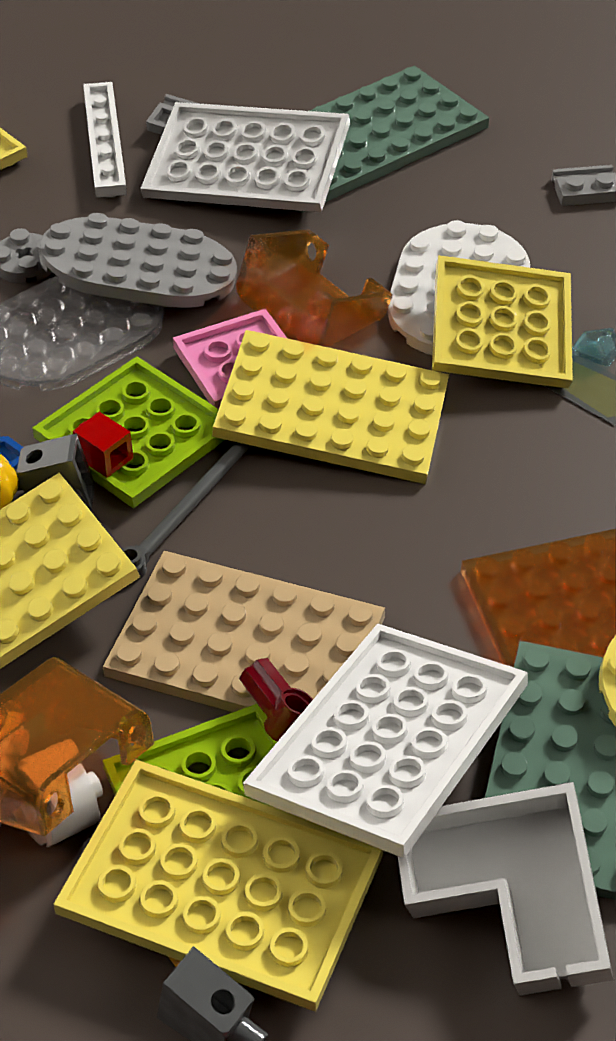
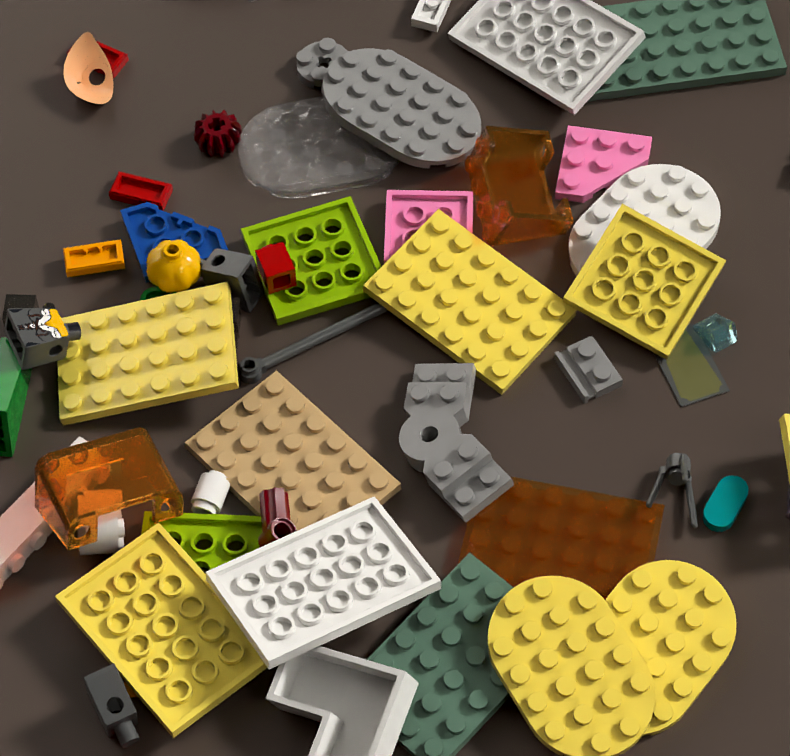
camera: 30 degrees right, 10 degrees up
(170, 707) = (210, 493): none -> white brick
(367, 245) = (596, 160): none -> bright pink plate
(392, 546) = (454, 462): none -> light grey plate
(498, 425) = (588, 369): none -> light grey plate

